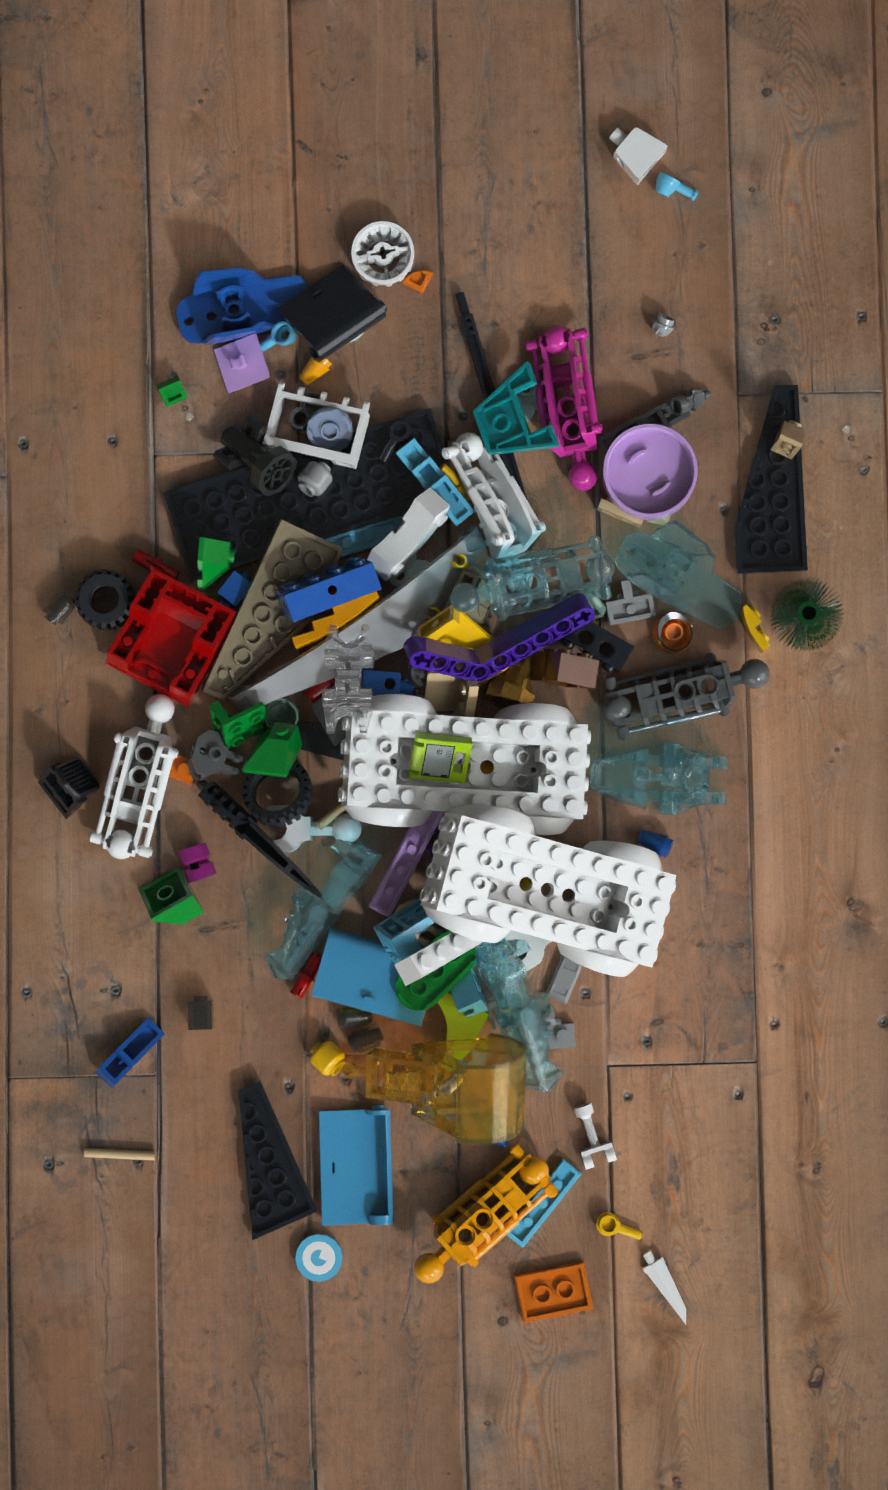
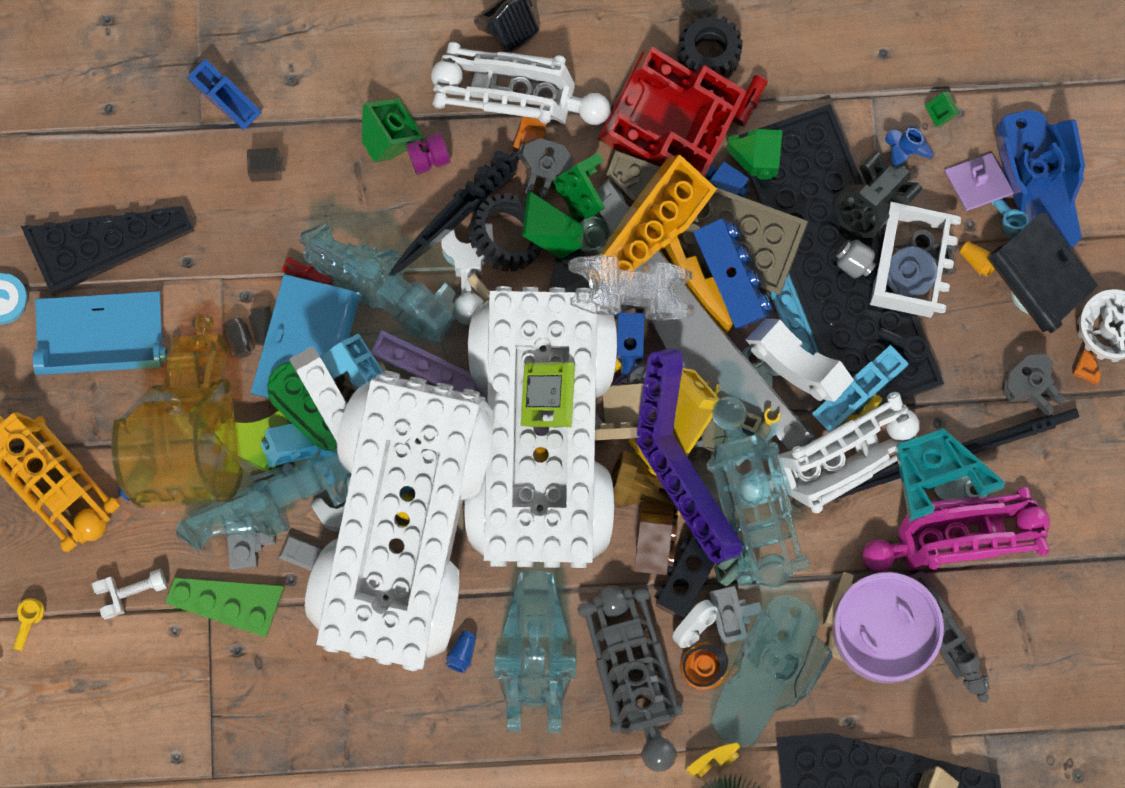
camera: 90 degrees right, 10 degrees down
(120, 1154) = (116, 90): tan bar -> none
(205, 425) = (906, 144): none -> blue animal
(275, 654) = (659, 213): none -> light orange wedge
(327, 1058) = (217, 298): yellow head -> none
(434, 328) = (1036, 382): none -> dark grey hinge
(563, 1178) = (80, 558): medium azure tile -> none
(606, 1043) = (235, 604): none -> bright green wing
(633, 633) = (694, 624): none -> white plate
(662, 325) = (1060, 642): light grey plate -> none

